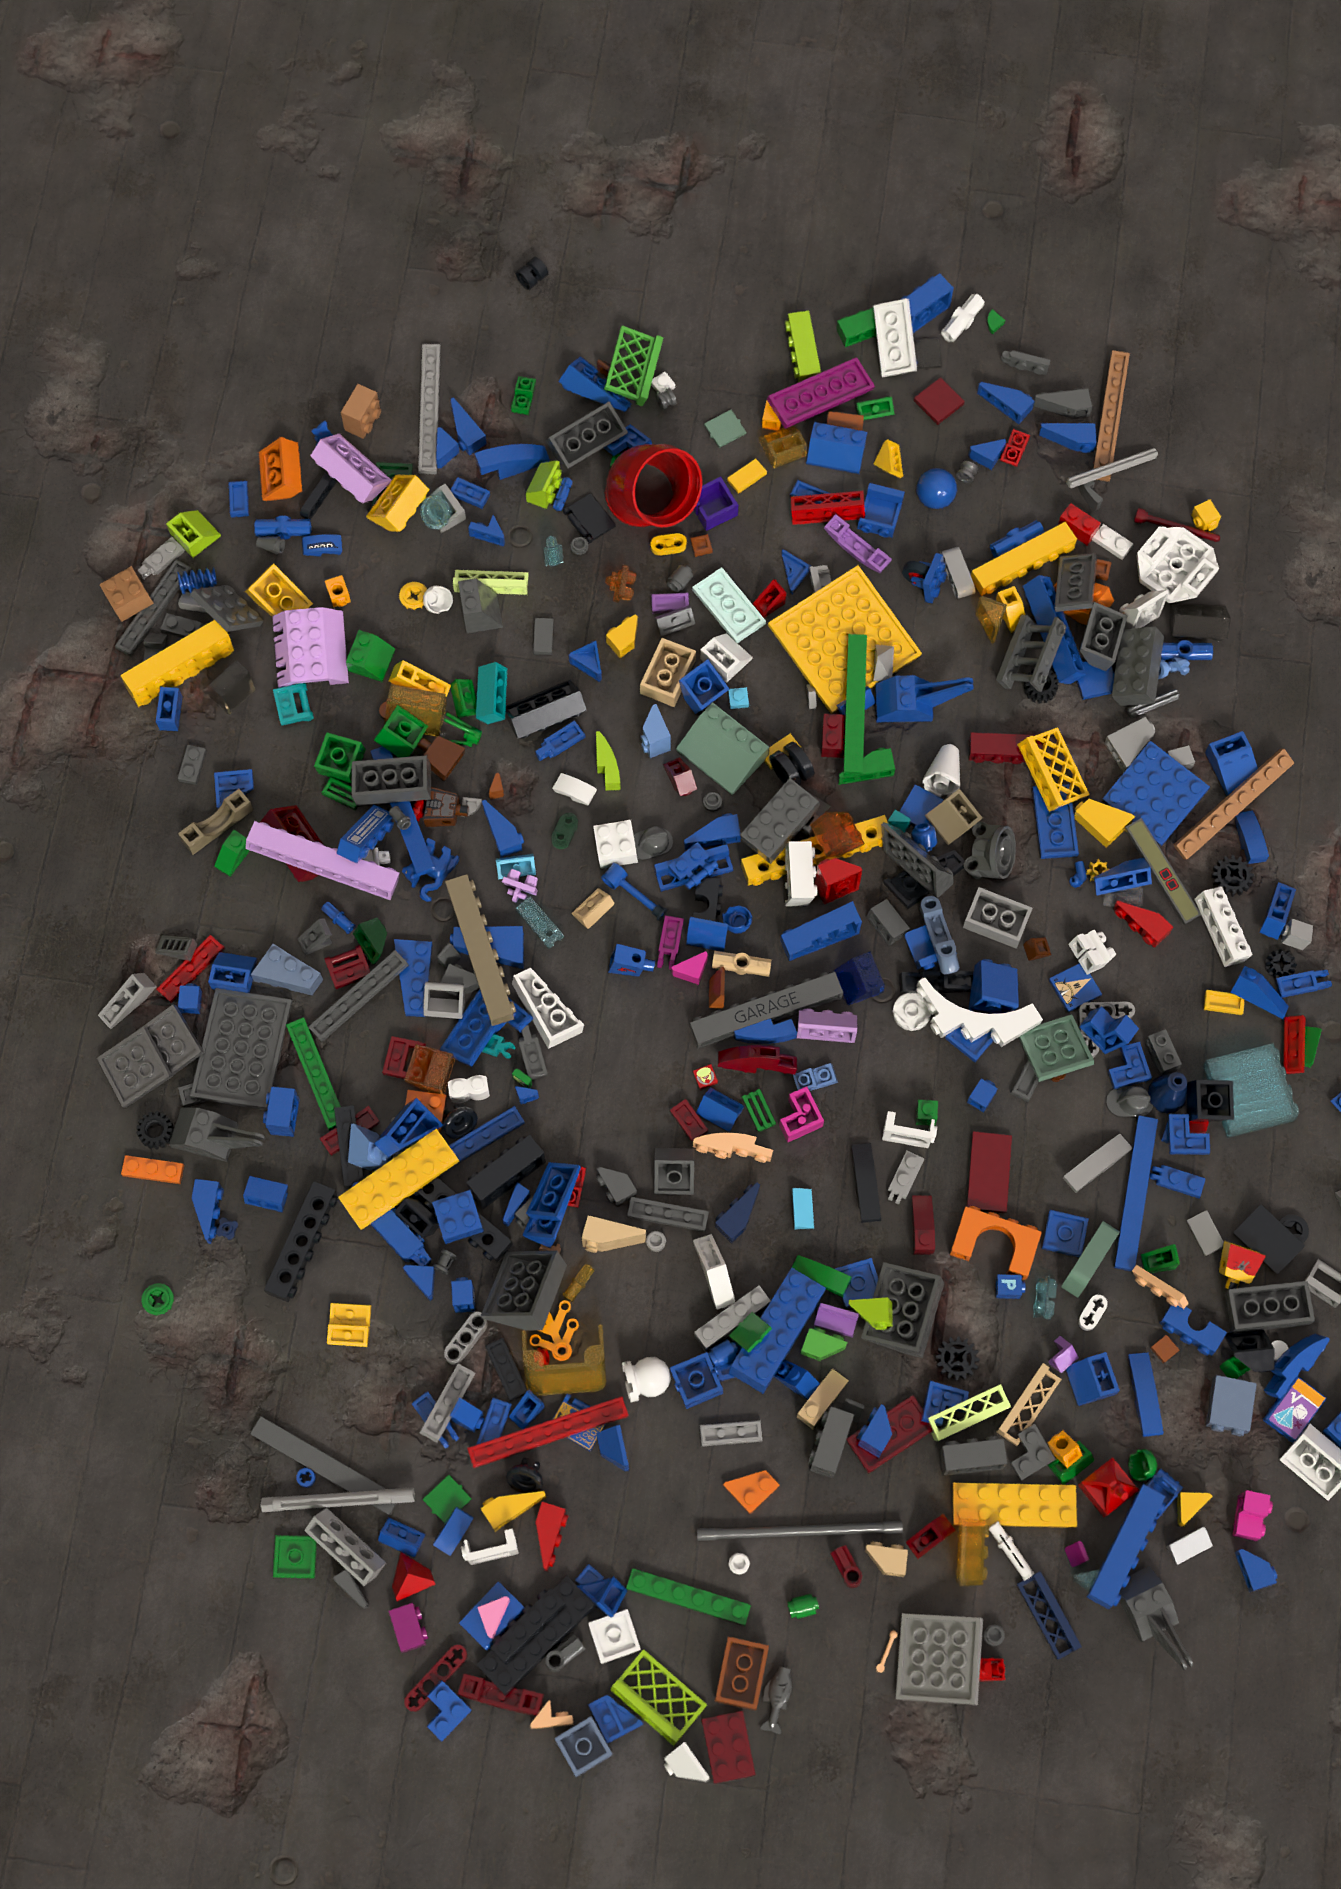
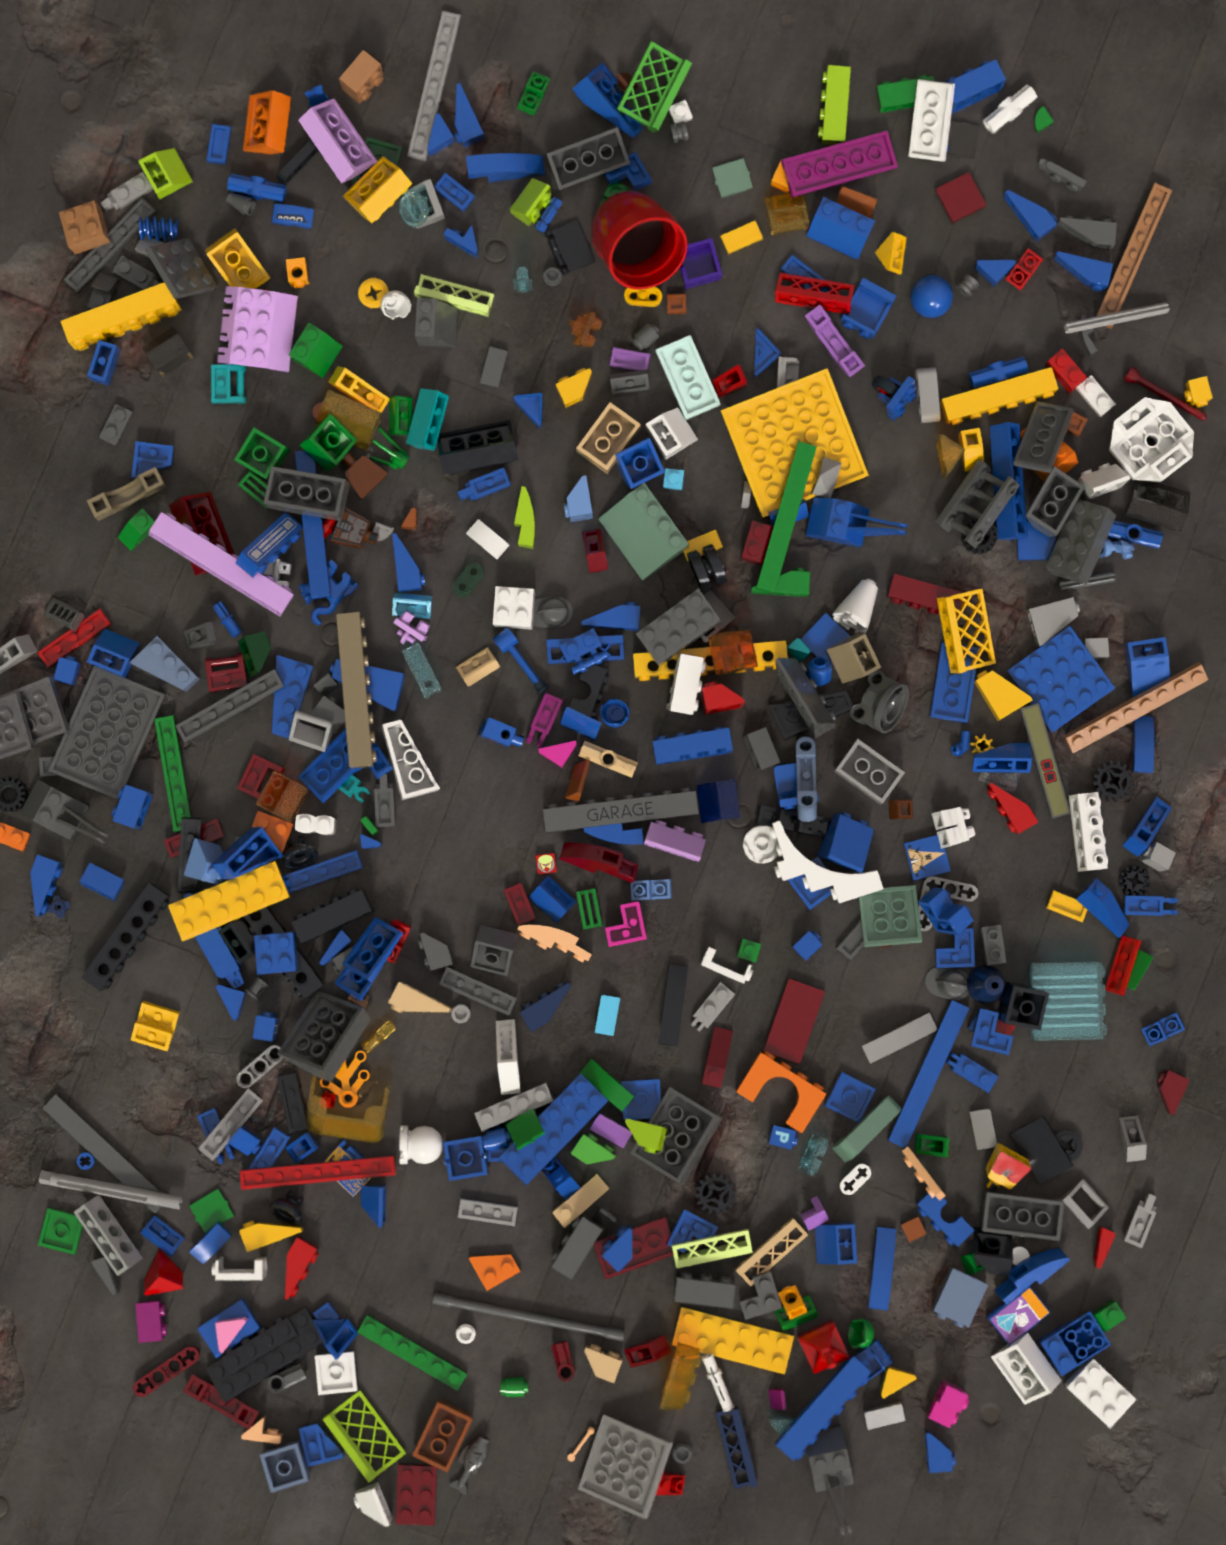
camera: 15 degrees right, 15 degrees up
(403, 822) = (309, 539): dark grey pin -> none
(452, 1710) = (174, 1402): blue plate -> none
(712, 801) = (620, 583): dark grey plate -> none
(875, 408) = (892, 190): green slope -> none

